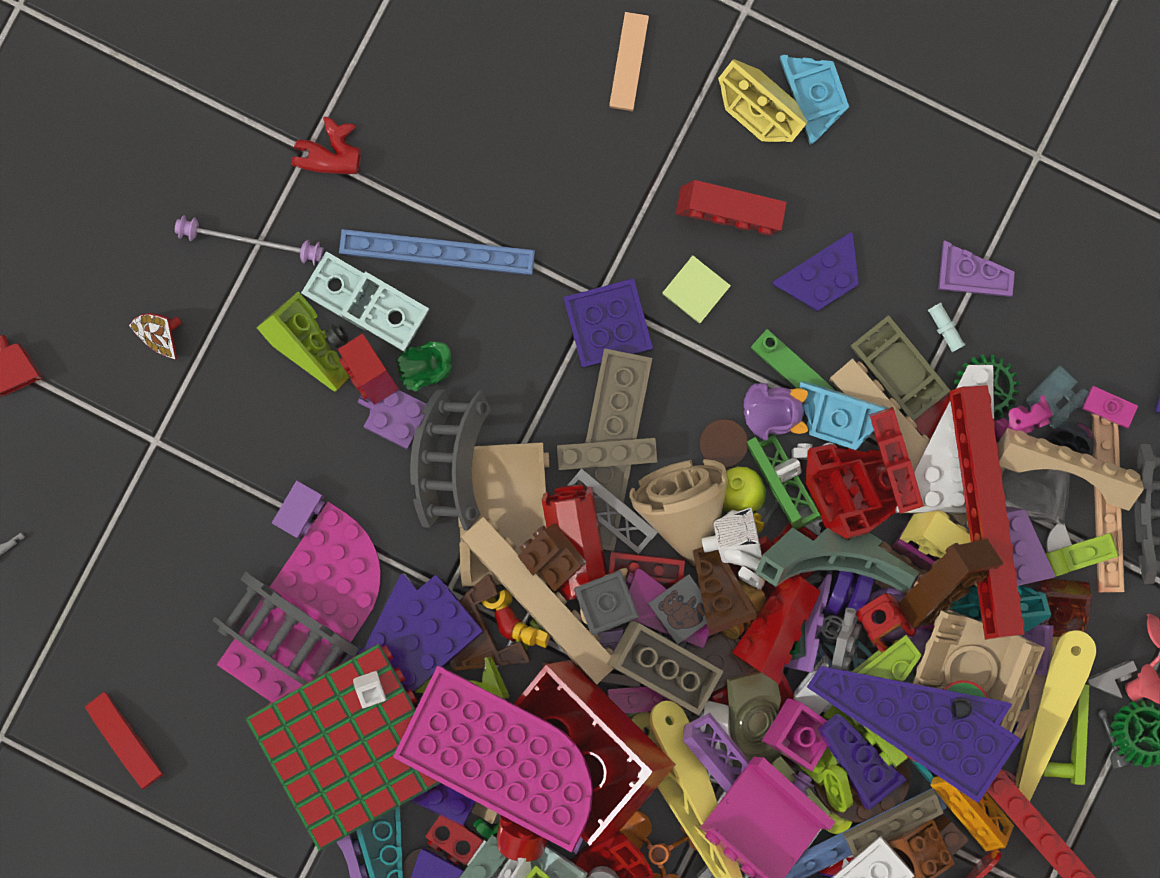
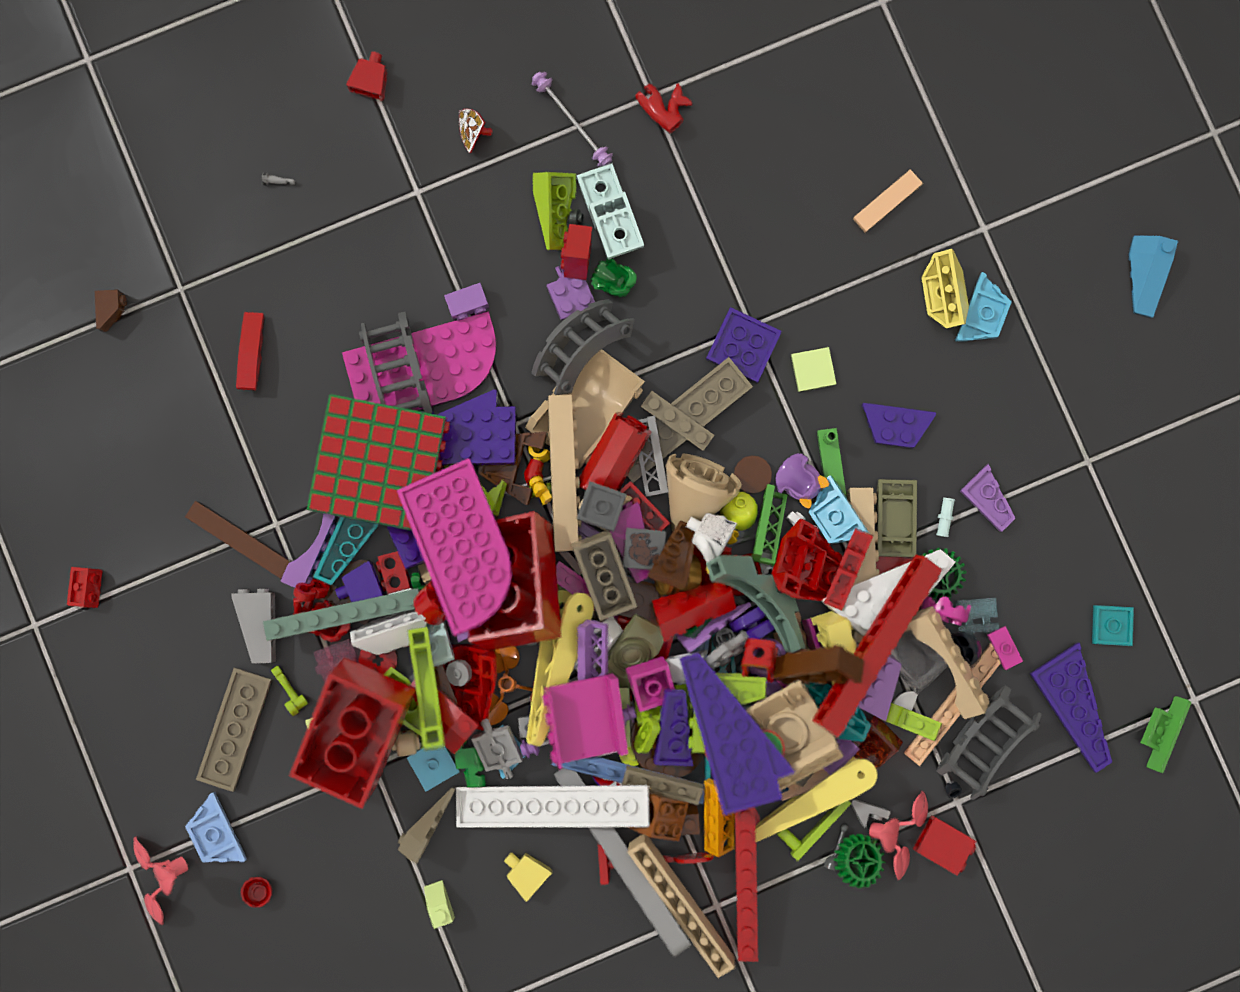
camera: 35 degrees right, 0 degrees up
(369, 689) = (417, 439): white slope -> none
(436, 252) = (677, 219): medium blue tile -> none
(551, 556) = (592, 451): reddish brown plate -> none
(731, 207) = (876, 337): red wedge -> none
(751, 578) = (700, 564): white tile -> none
(788, 469) = (778, 521): white slope -> none
(961, 708) = (761, 749): black hinge -> none

